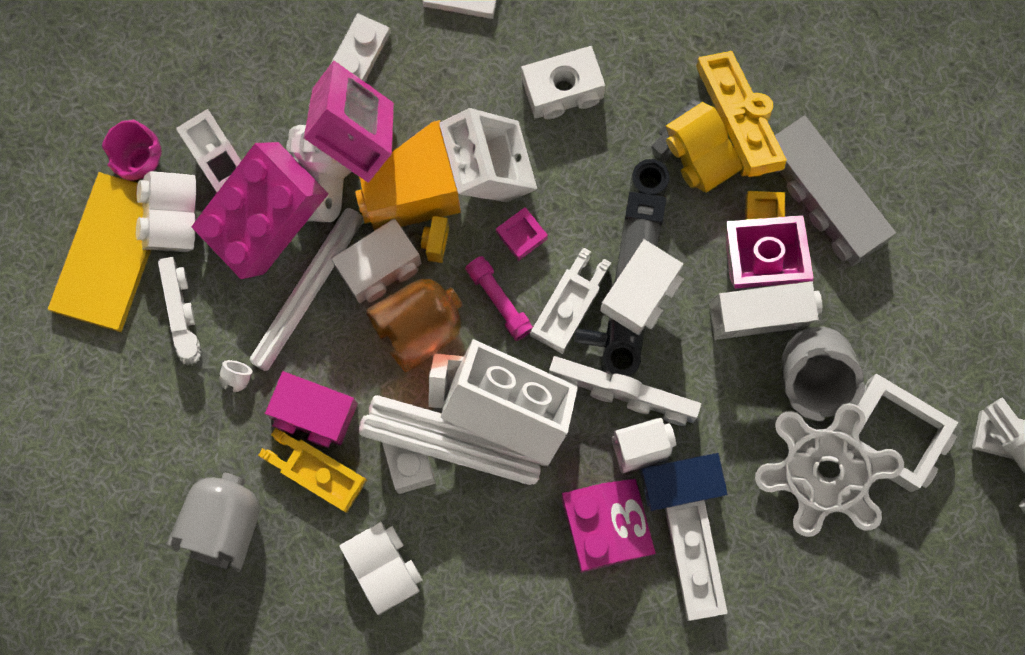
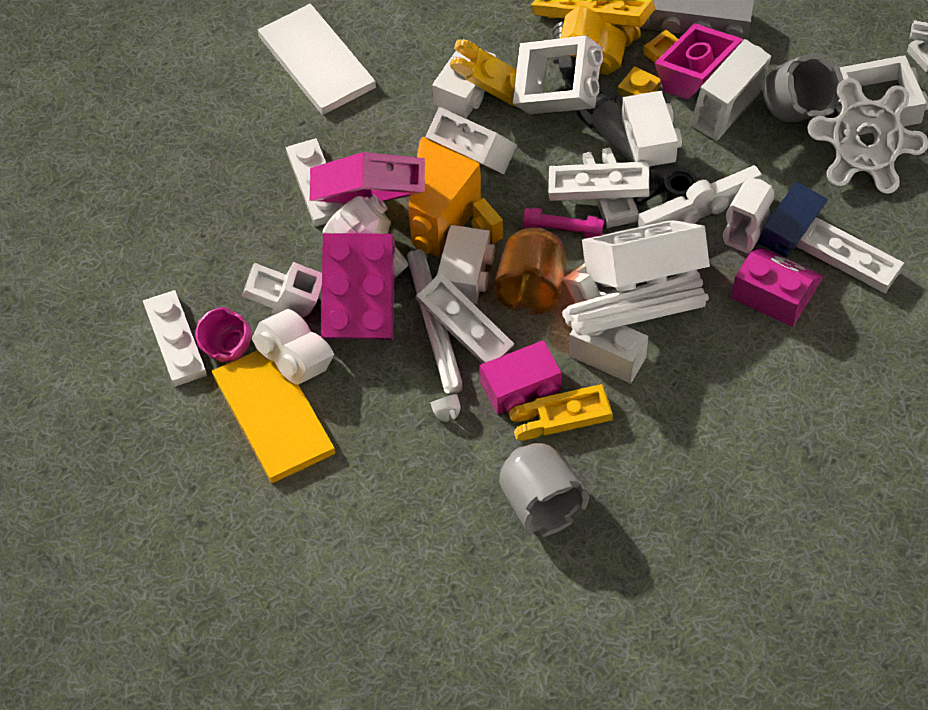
camera: 45 degrees left, 20 degrees down
(105, 109) = (174, 338): none -> white plate
(179, 314) = (365, 401): white hinge -> none
(318, 317) = (464, 320): none -> white plate
(380, 567) = (672, 425): white brick -> none
(521, 233) = (534, 177): dark pink plate -> none
(555, 293) = (599, 181): none -> white plate
(580, 103) = (485, 70): none -> yellow hinge
(610, 138) = (531, 75): none -> white window
(706, 224) = (638, 83): none -> yellow plate

